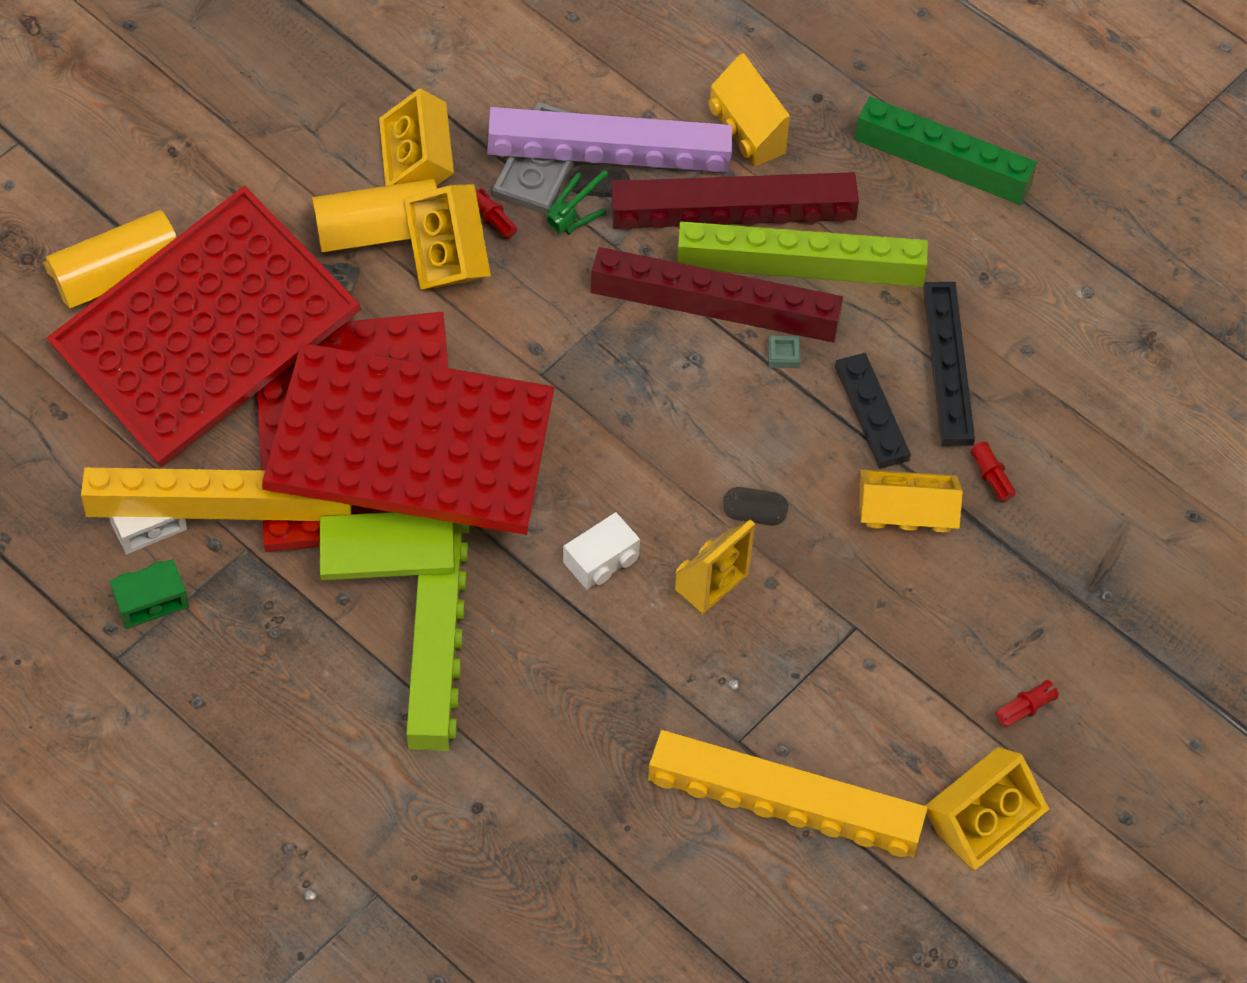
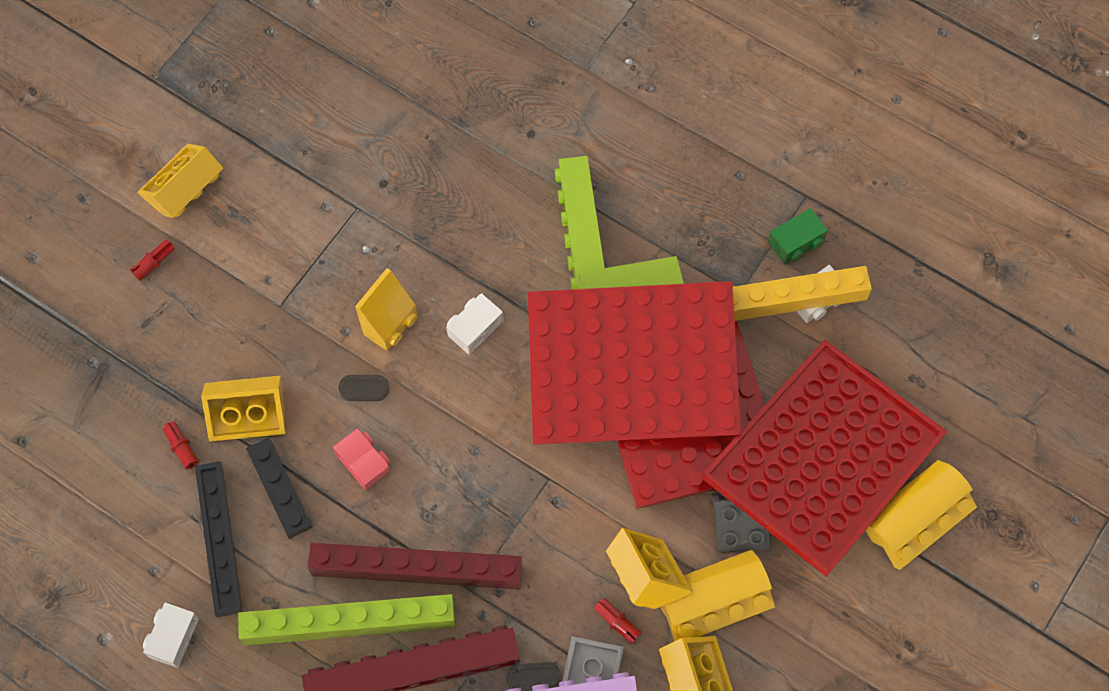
camera: 175 degrees right, 10 degrees up
(562, 216) = (556, 626): green plant -> none
(767, 417) = (362, 459): none -> coral brick
(784, 351) = (355, 530): sand green tile -> none
(787, 794) = (319, 166): yellow brick -> none
(1007, 271) = (170, 635): none -> white brick

